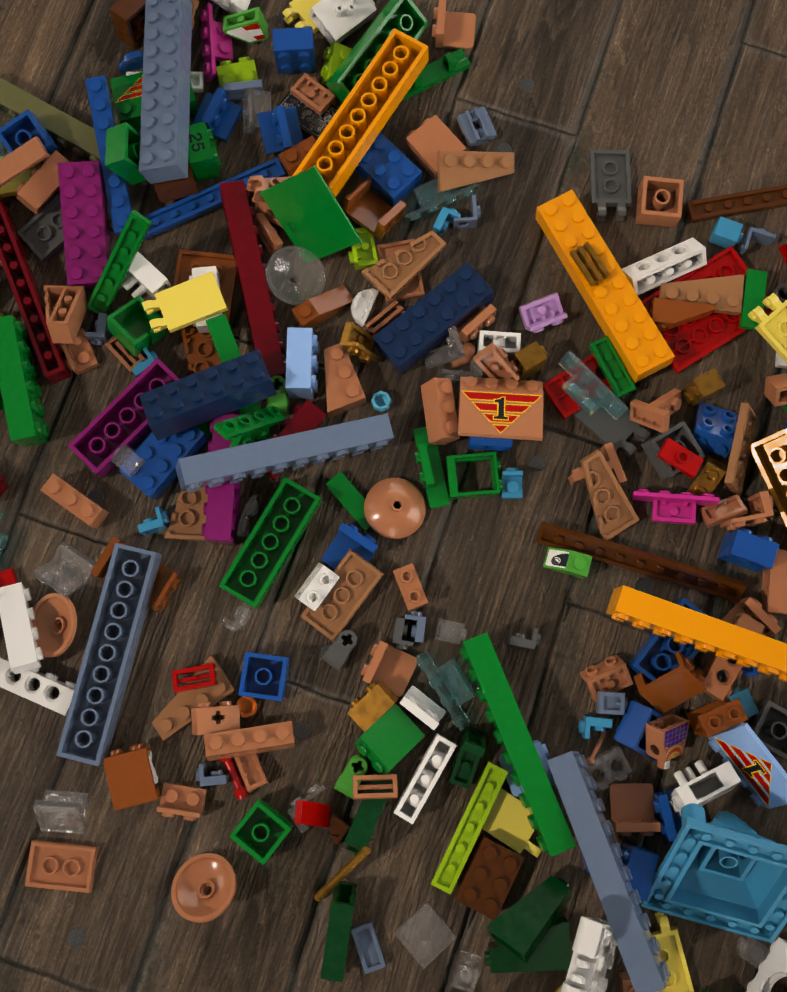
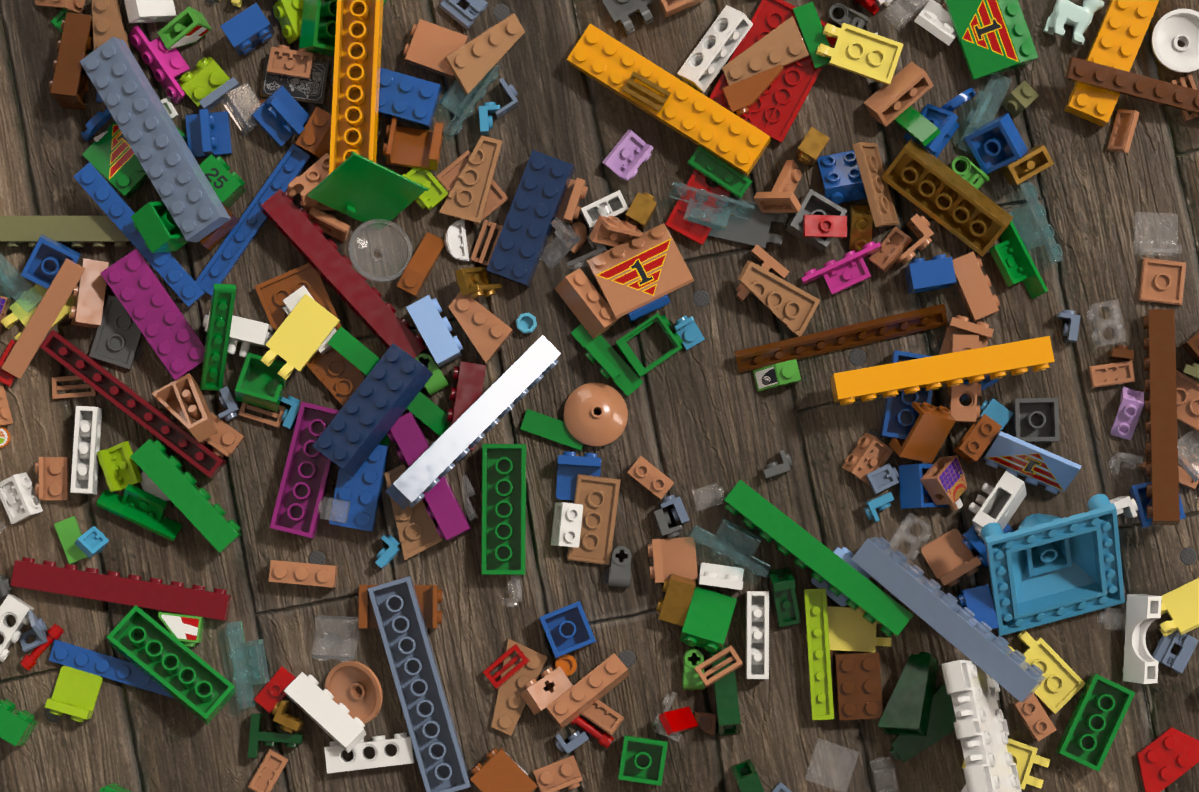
camera: 30 degrees left, 5 degrees up
(250, 426) = (428, 417): green bracket -> none
(342, 873) = (736, 739): pearl gold bar -> none
(590, 760) = (891, 538): nougat hinge -> none

